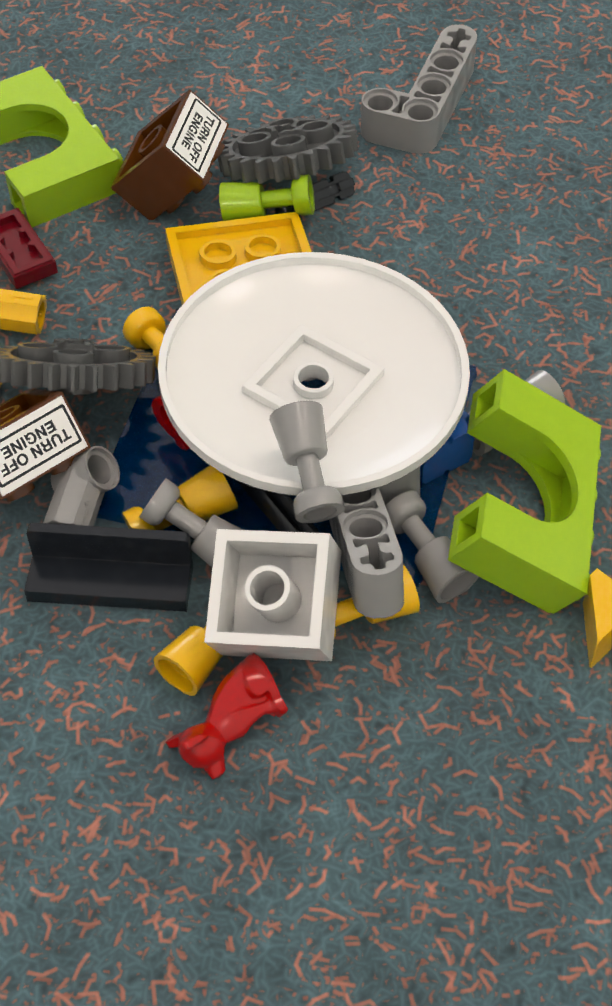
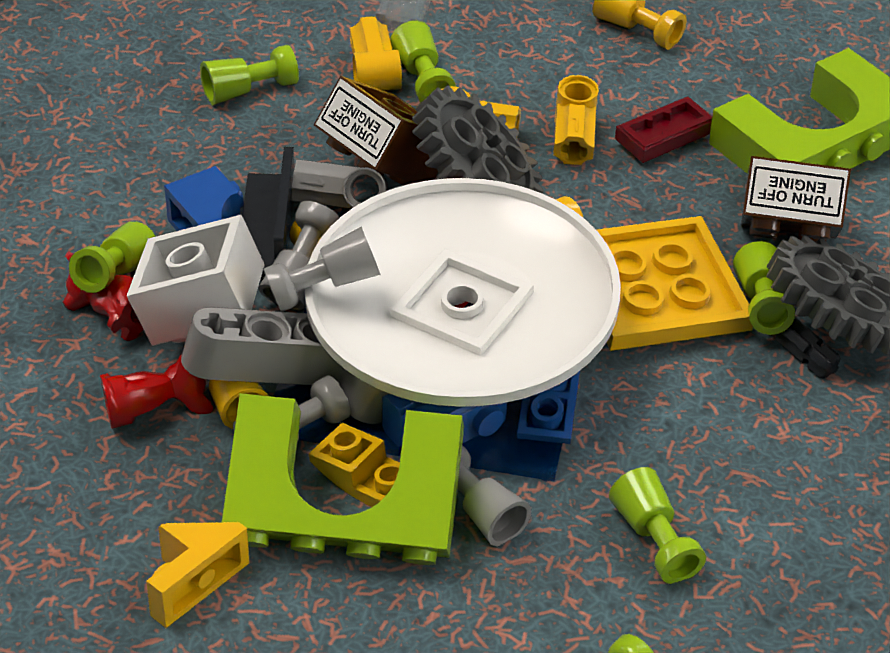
camera: 85 degrees right, 10 degrees down
(103, 627) = (202, 199): none -> blue arch
(166, 701) = (119, 254): none -> lime piece
(394, 682) = (143, 391): none -> red animal
(491, 474) = (356, 463): none -> yellow slope
(528, 302) = (649, 512): none -> lime piece

